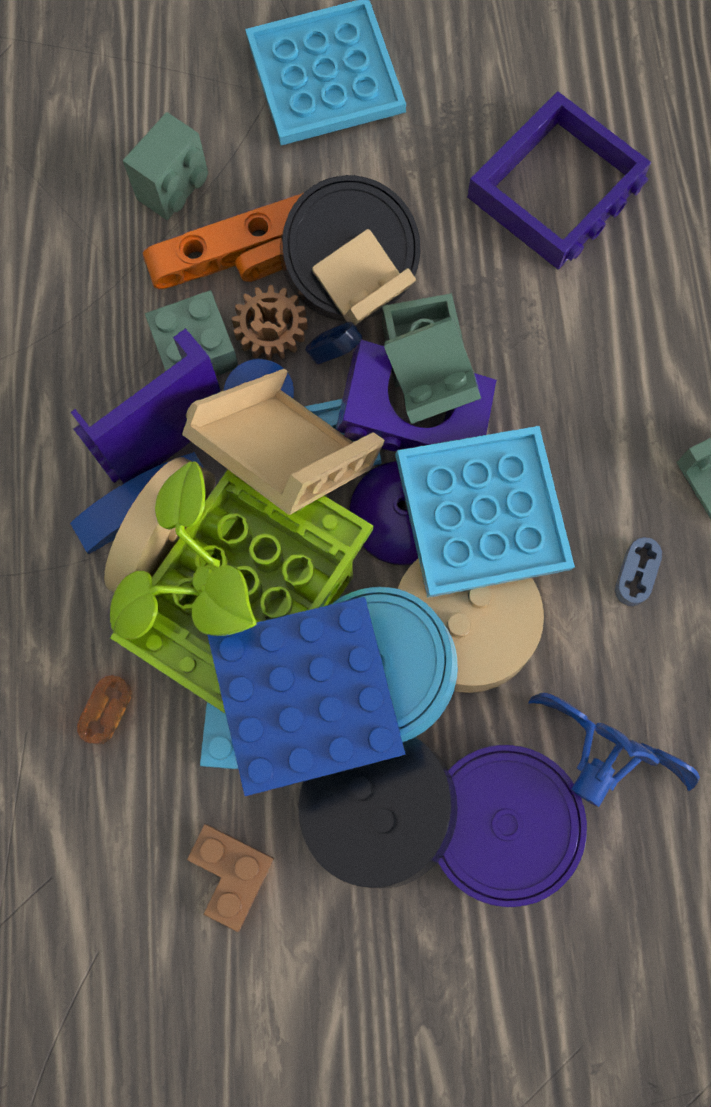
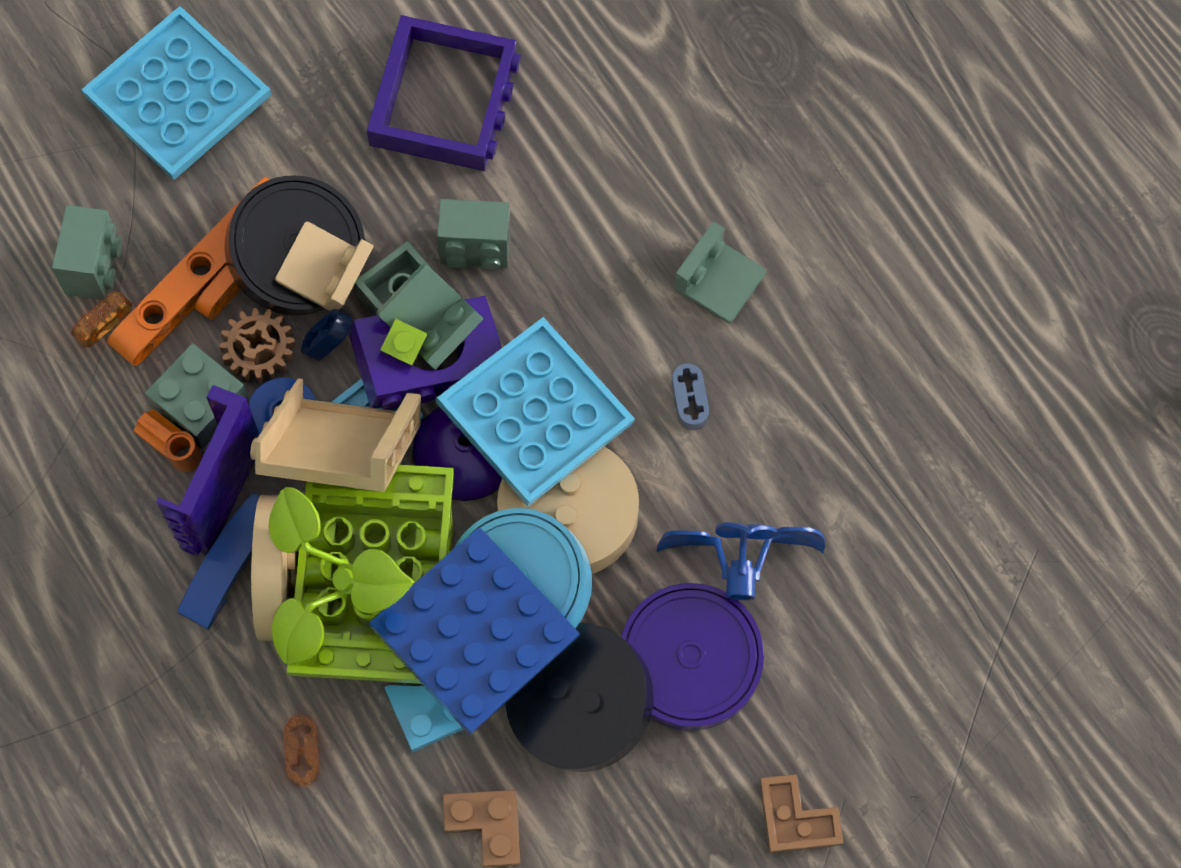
camera: 35 degrees left, 5 degrees down
(142, 358) = (167, 440): none -> orange piece
(143, 233) = (101, 319): none -> clear orange beam
(394, 382) = (403, 342): none -> lime plate
(512, 1044) = (789, 826): none -> medium nougat plate
(517, 317) = (474, 233): none -> sand green brick

